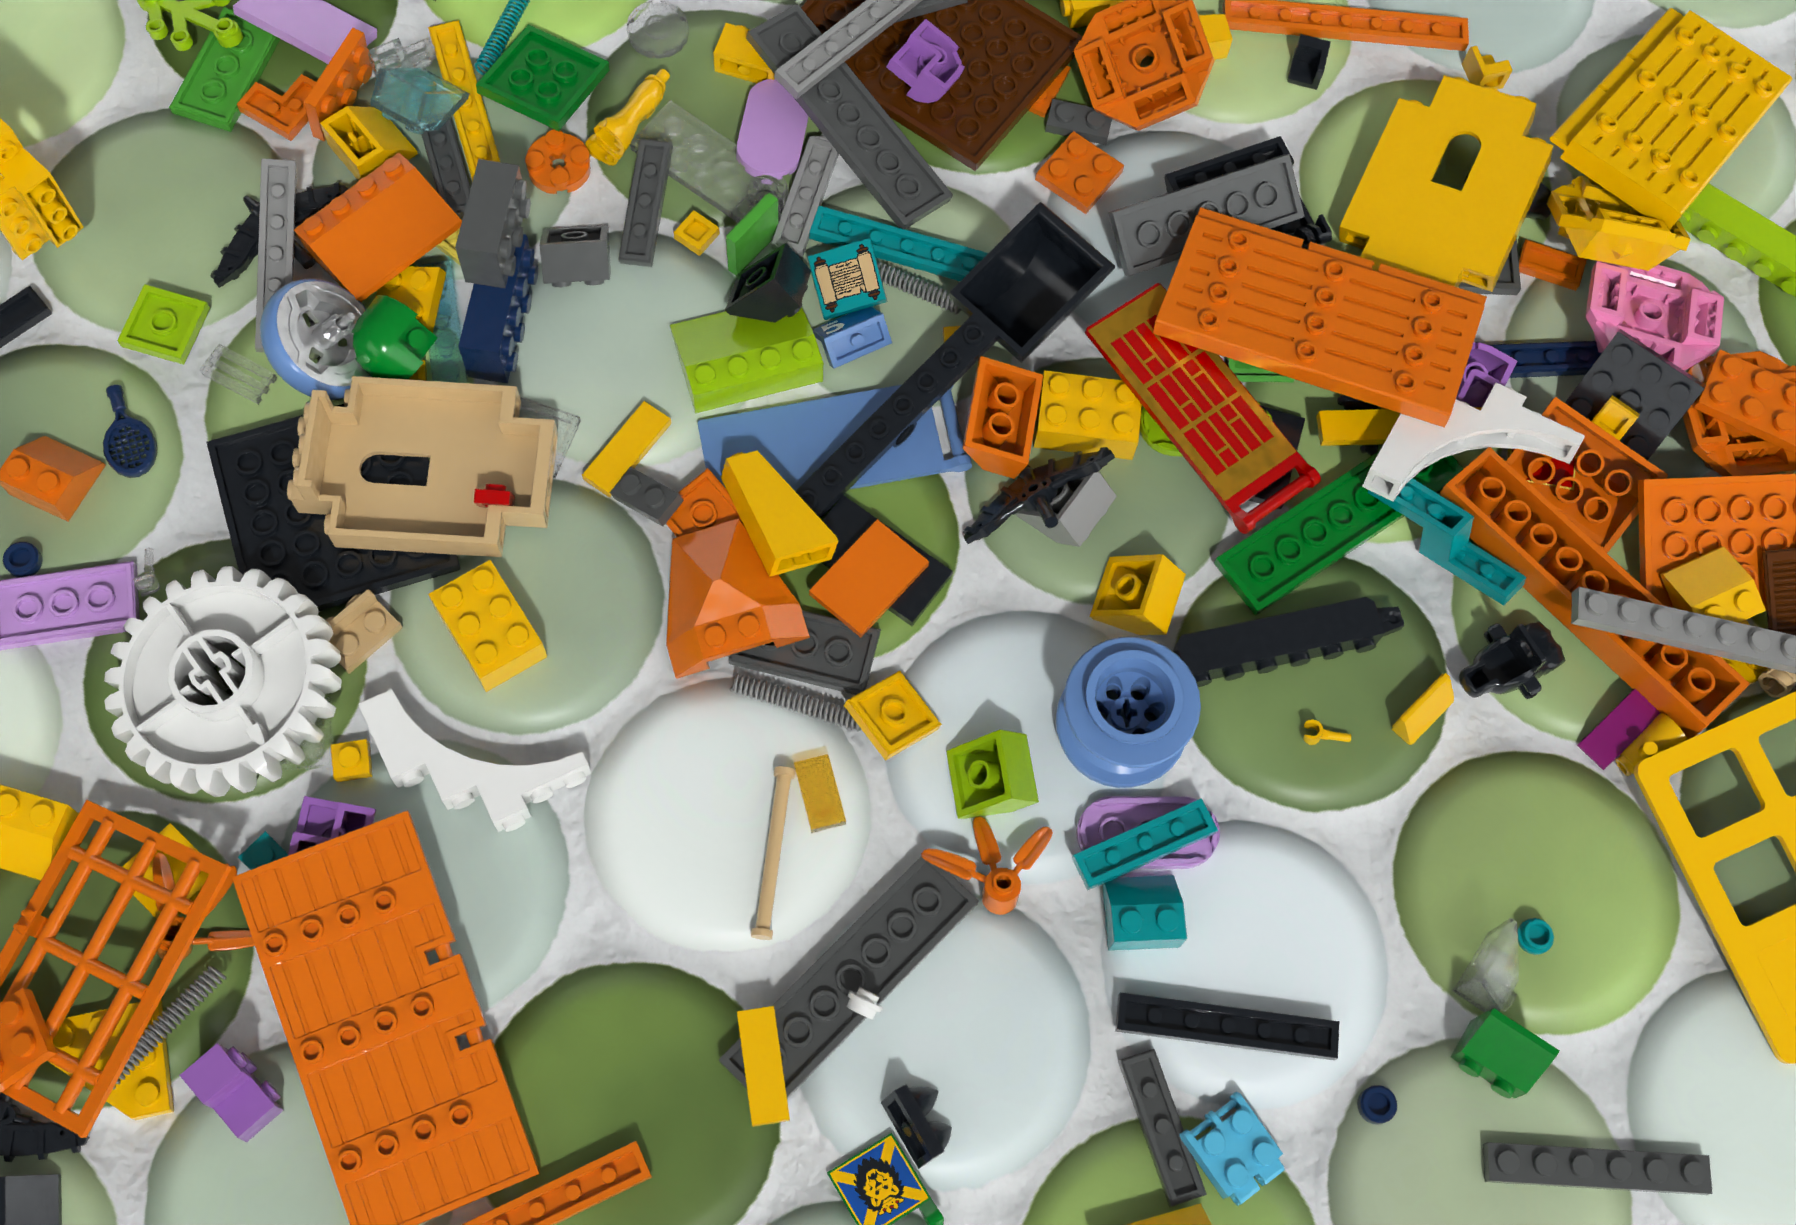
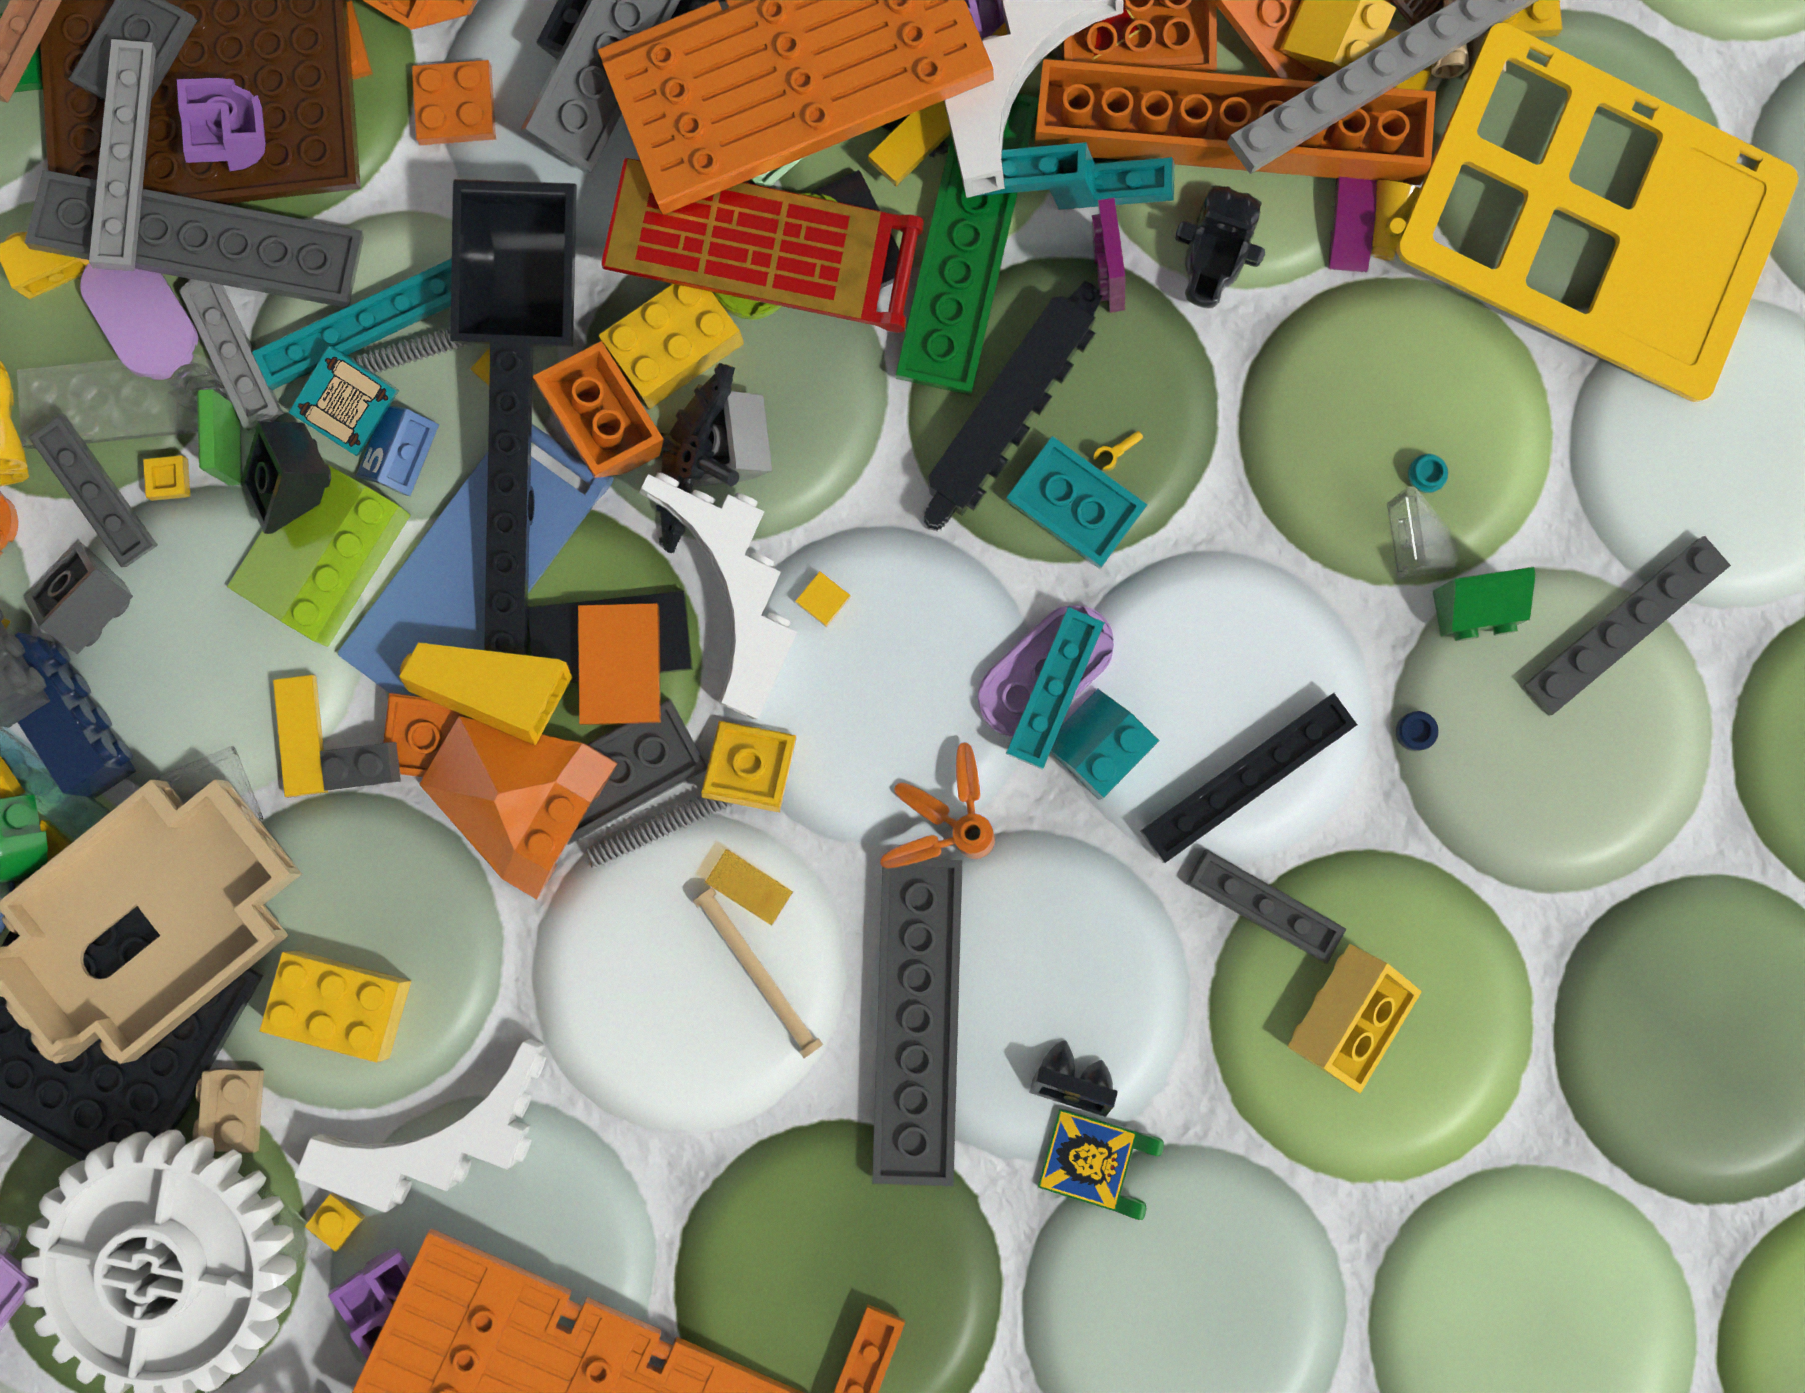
camera: 35 degrees left, 15 degrees up
(262, 852) = (341, 1365): teal plate -> none
(493, 495) = (231, 894): red plate -> none
(763, 1066) = (913, 1157): yellow tile -> none
(864, 1003) = (948, 1034): white plate -> none
(992, 775) = (878, 741): lime slope -> none
(1000, 598) = (725, 534): none -> white arch
(1039, 656) = (823, 599): none -> yellow tile
(1084, 120) = (407, 48): dark grey plate -> none
(1105, 747) = (961, 541): medium blue wheel -> none
(1138, 594) = (858, 467): yellow slope -> none
(1235, 1150) = (1339, 873): medium azure plate -> none
(1266, 741) = (1076, 502): none -> teal plate
(1425, 710) = (1181, 353): yellow slope -> none
(1428, 599) = (1109, 255): none -> magenta plate

